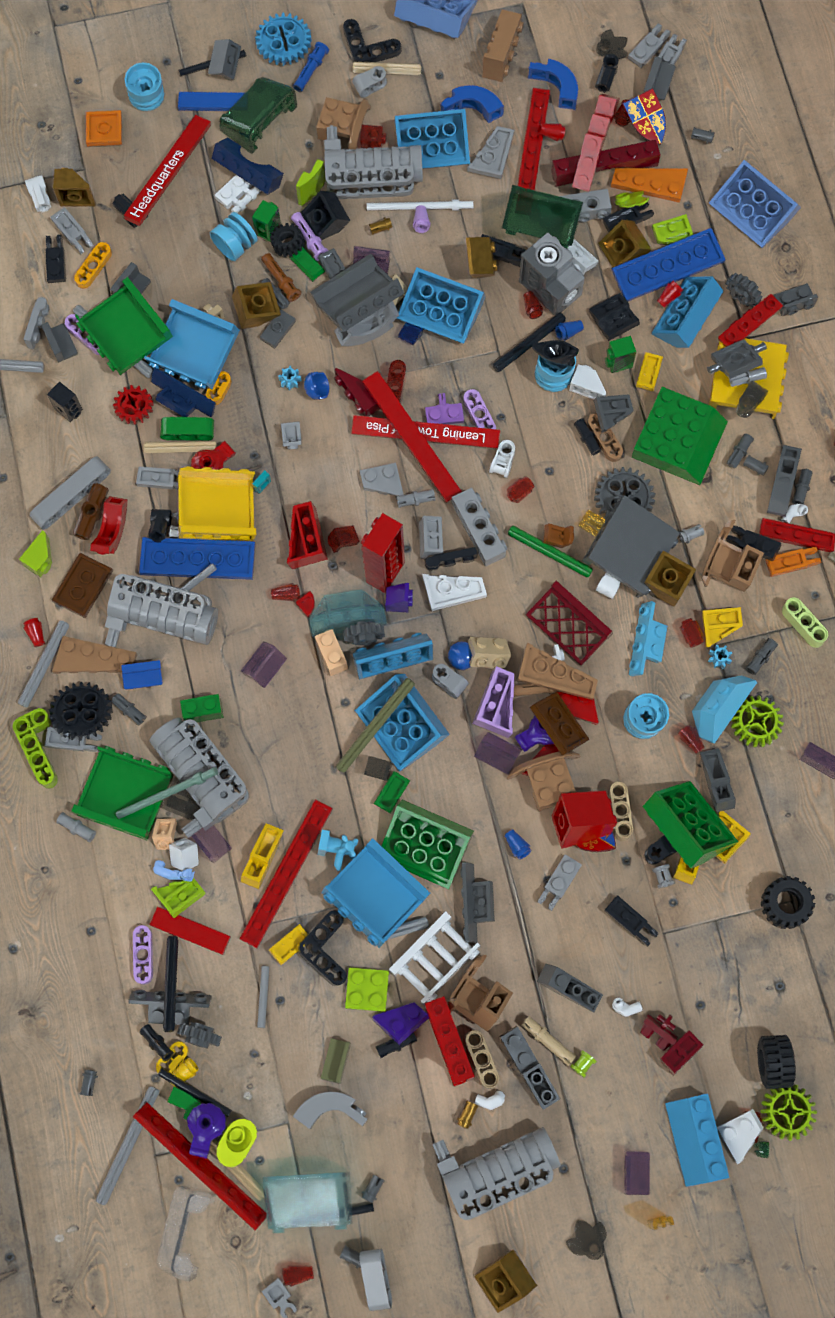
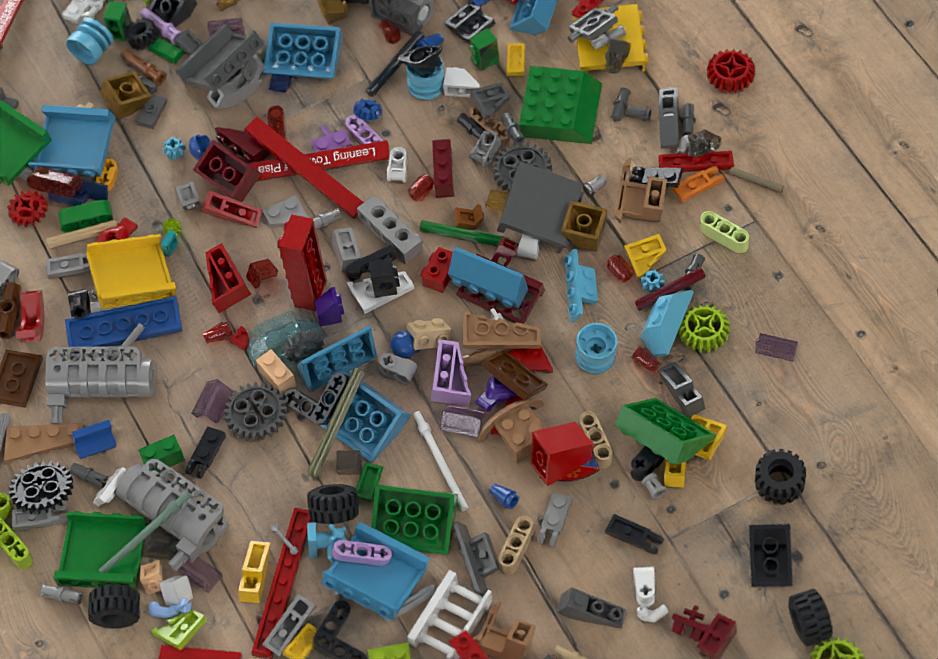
camera: 10 degrees left, 15 degrees down
(120, 859) = (114, 606): none -> black tyre
(140, 736) = (107, 493): none -> white plate
(164, 385) = (54, 182): none -> clear red beam
(245, 715) = (205, 451): none -> black hinge
(268, 459) = (169, 223): none -> clear neon green plate
(282, 922) = (289, 624): none -> light grey slope
(286, 692) = (271, 403): none -> dark grey gear
(291, 816) = (275, 529): none -> light grey hinge
(329, 462) = (230, 209): none -> red slope
(334, 421) = (227, 171): none -> dark red brick
(351, 812) = (333, 504): none -> black tyre
(364, 701) = (318, 407): none -> black beam
(379, 880) = (355, 558): none -> lavender beam
(459, 584) = (384, 278): none -> black brick
(459, 752) = (425, 431): none -> white bar
(485, 392) = (362, 111): none -> blue gear
(516, 585) = (436, 273): none -> red brick
(521, 892) = (512, 553): none -> tan beam
(547, 474) = (443, 168): none -> dark red arch
(559, 612) = (487, 278): none -> dark azure slope
(584, 584) = (506, 249): none -> dark red hinge
(593, 464) = (485, 149): none -> light grey piece
(626, 451) = (513, 128): none -> dark grey pin
(627, 973) = (644, 583): none -> white piece
(736, 670) = (670, 288): none -> dark red axle
(756, 980) = (770, 555): none -> black slope
(810, 519) = (703, 143): none -> clear smoke piece

